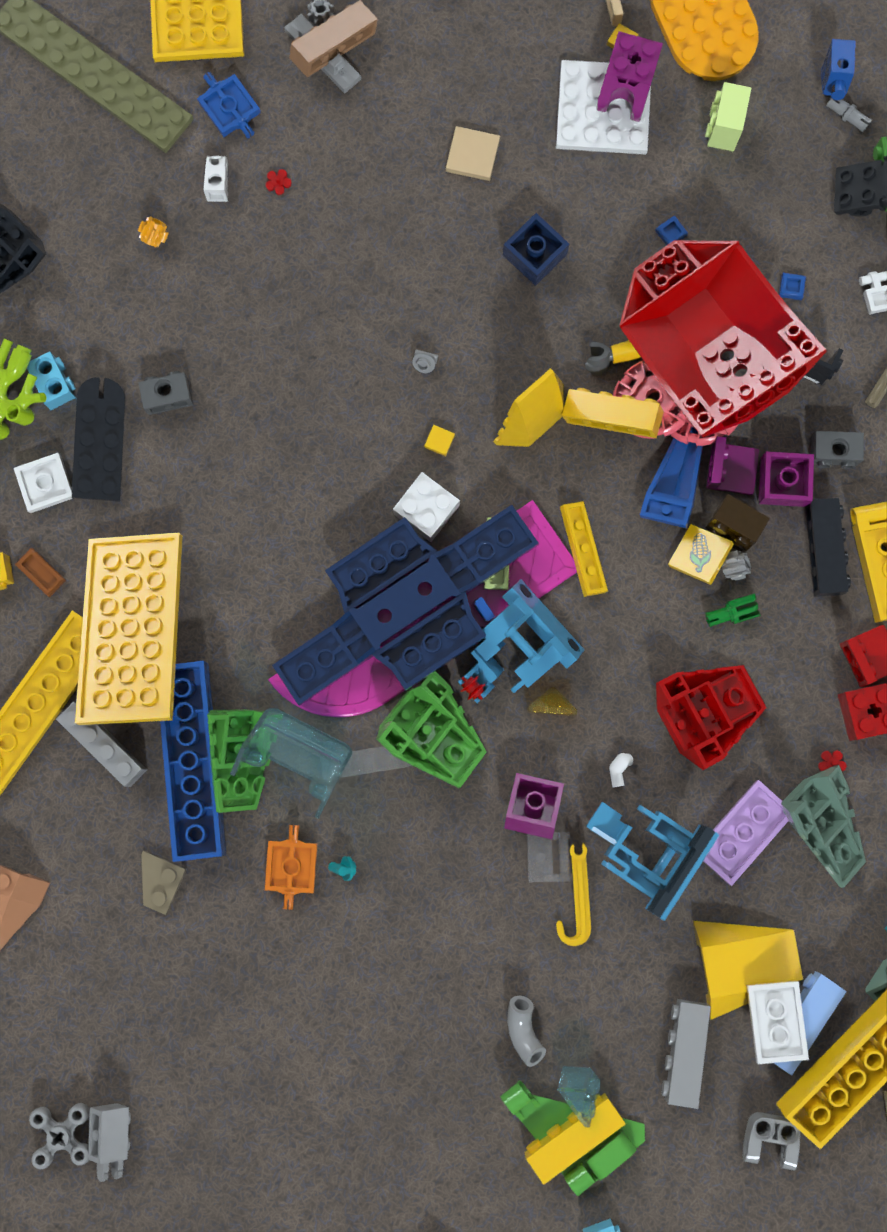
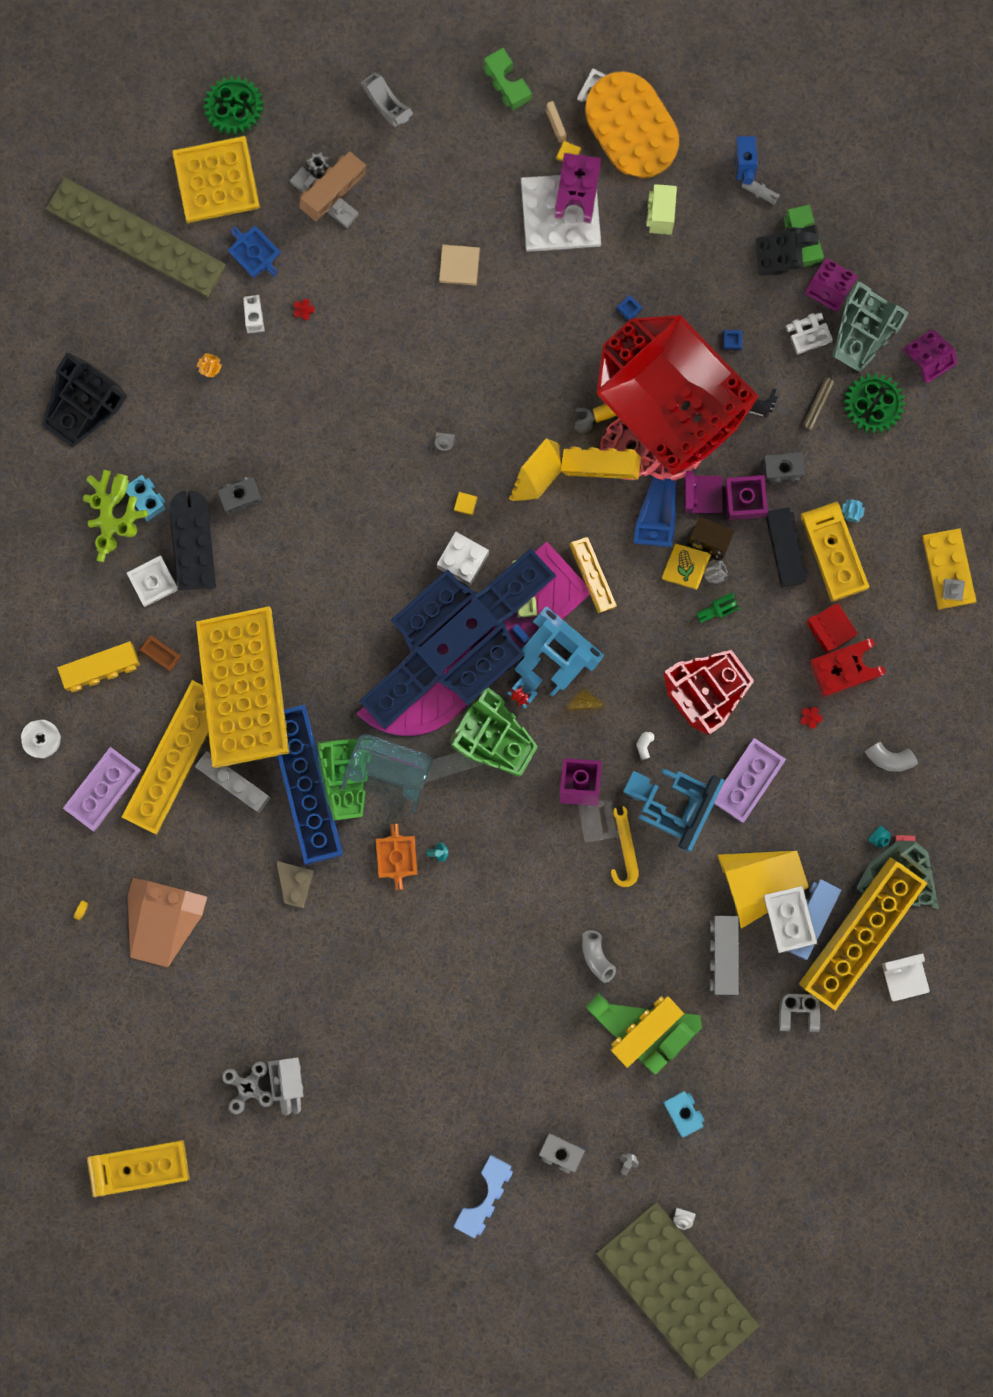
camera: 10 degrees left, 0 degrees up
(535, 249) = (521, 338): dark blue brick -> none
(579, 1090) = (645, 994): clear light blue slope -> none
(824, 822) = (810, 763): sand green wedge -> none

